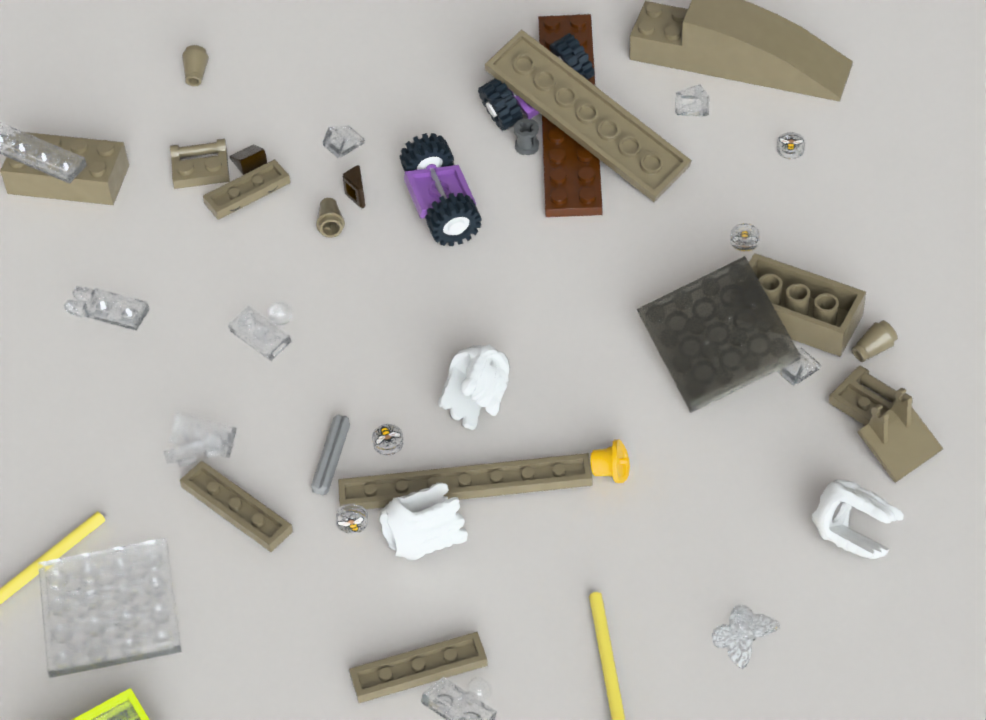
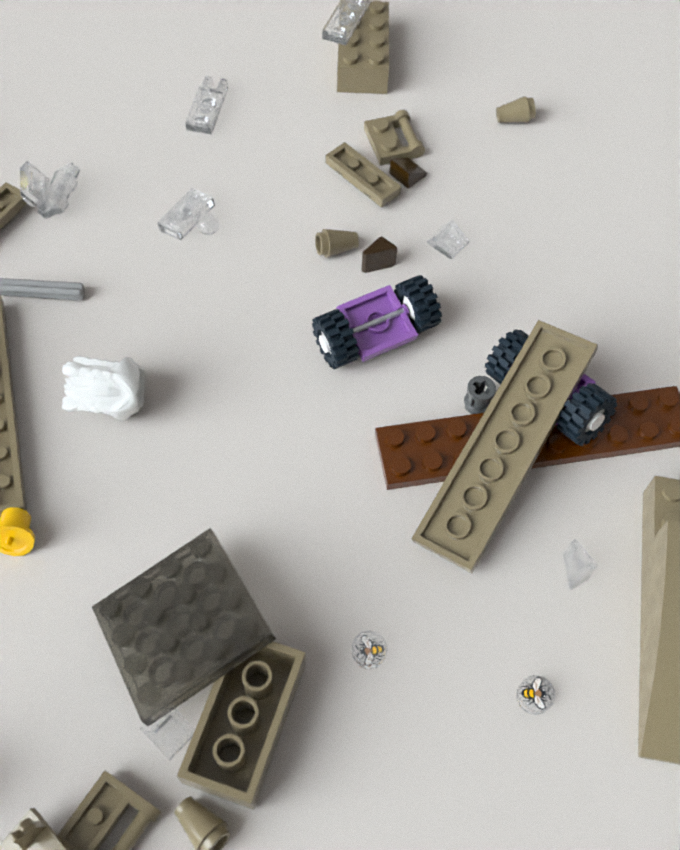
camera: 75 degrees right, 10 degrees up
(387, 439) = (58, 331): clear tile -> none

